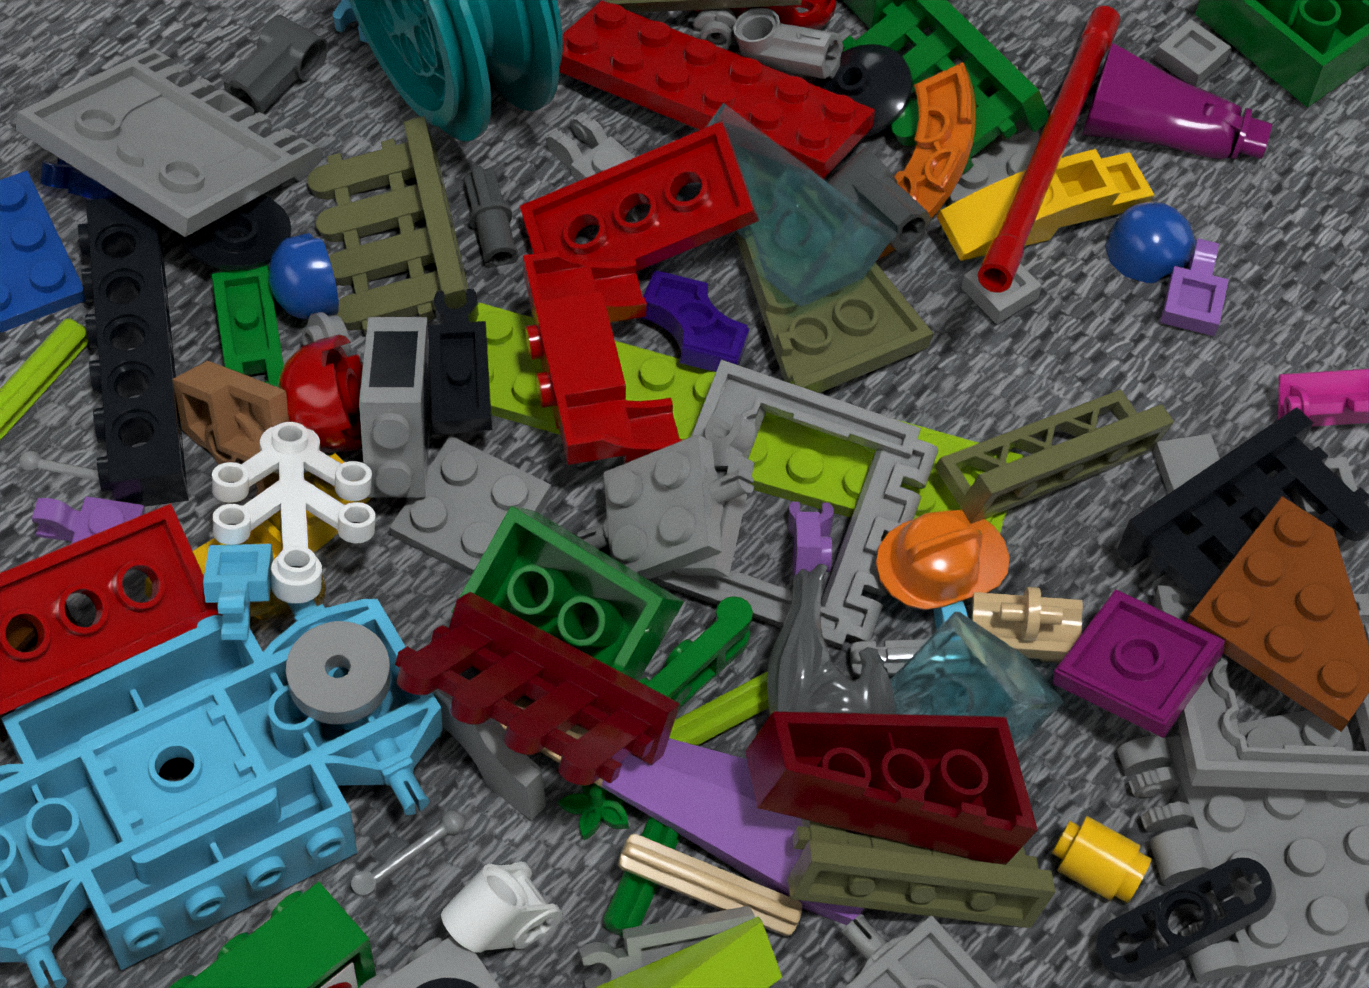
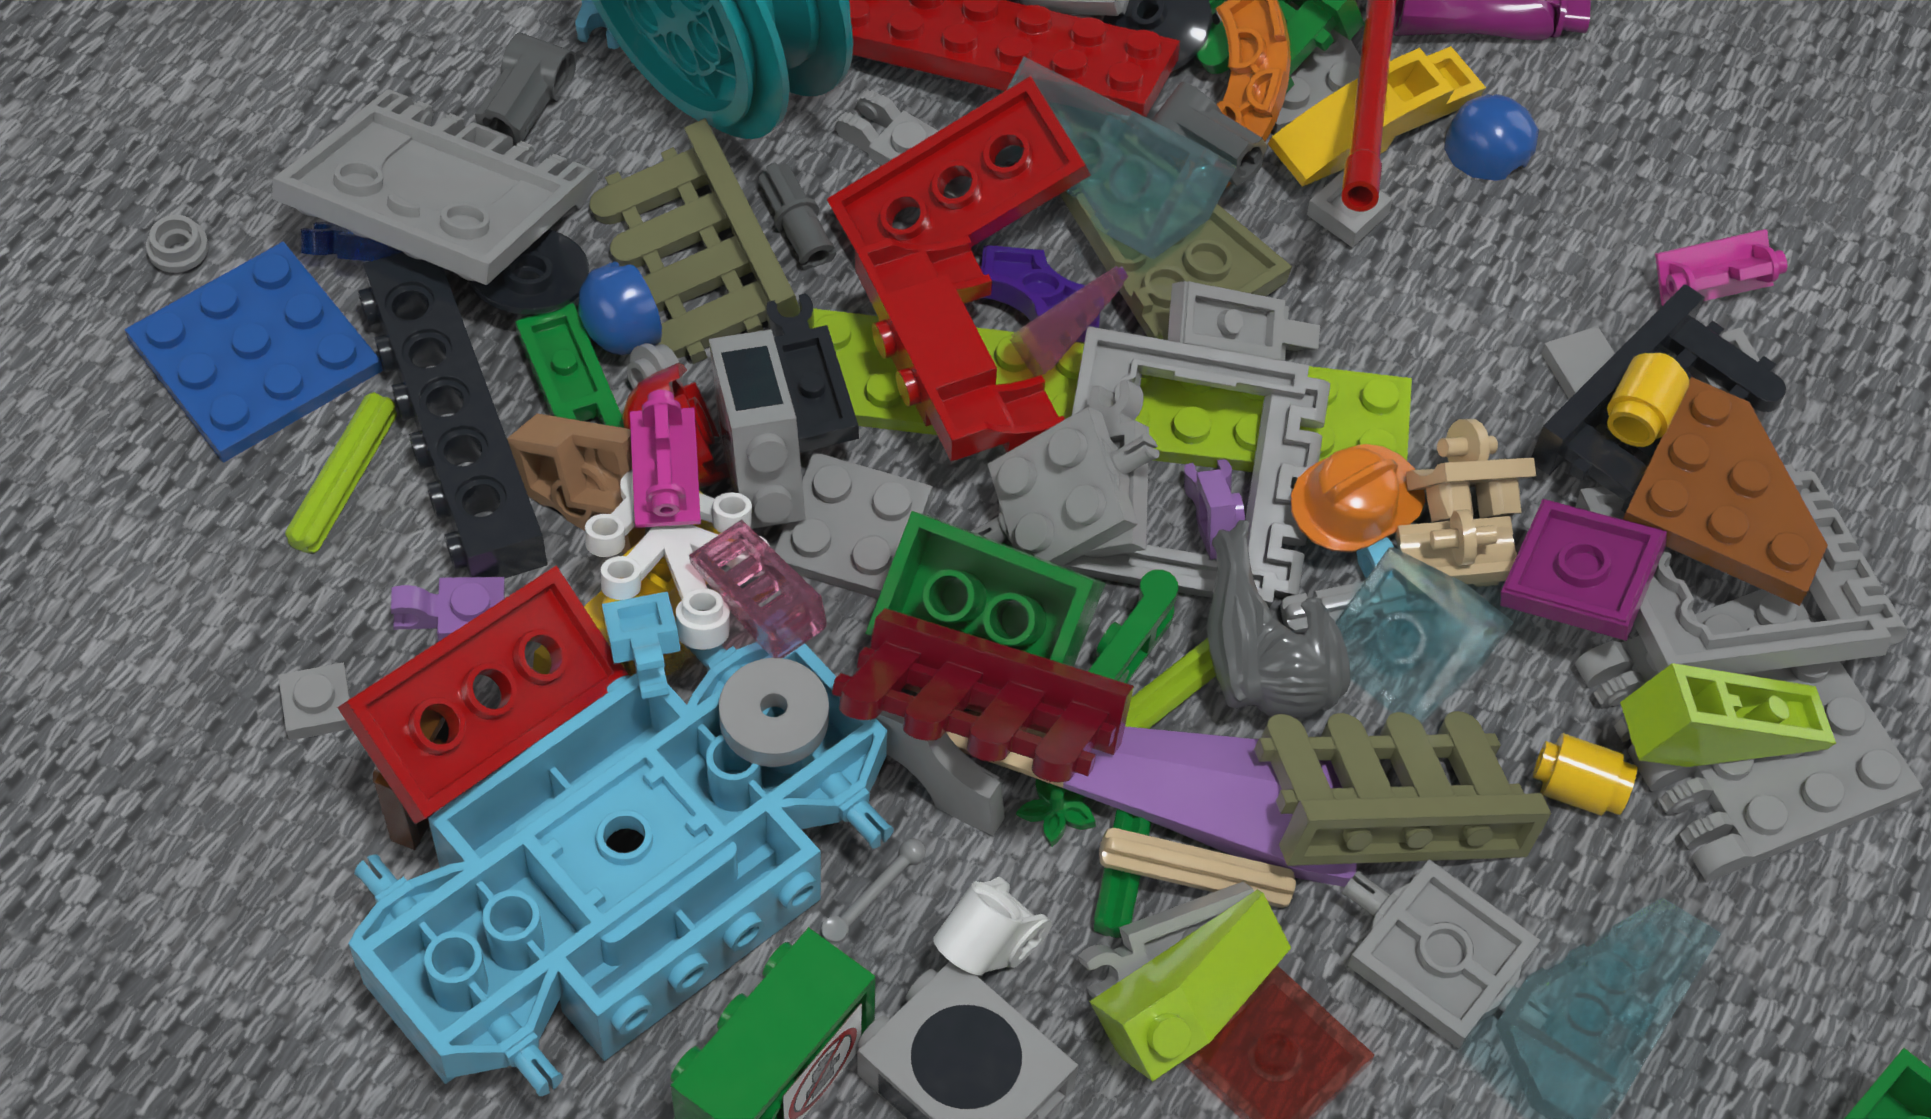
camera: 10 degrees left, 0 degrees up
(31, 460) = (367, 550): light grey hinge -> none
(299, 425) = (664, 463): none -> dark pink hinge
(369, 589) = (782, 622): none -> clear pink slope
(690, 359) = (1056, 330): none -> clear pink slope
(865, 378) = (1236, 322): none -> light grey hinge
(898, 778) = (1373, 723): dark red wedge -> none
(1031, 560) = (1468, 466): none -> tan hips
(1050, 465) = (1444, 384): olive fence -> none
(1192, 892) = (1711, 773): black beam -> none
(1195, 295) = (1548, 185): medium lavender plate -> none
(1215, 819) = (1720, 717): none -> lime slope
(1233, 510) = (1647, 399): none -> yellow brick

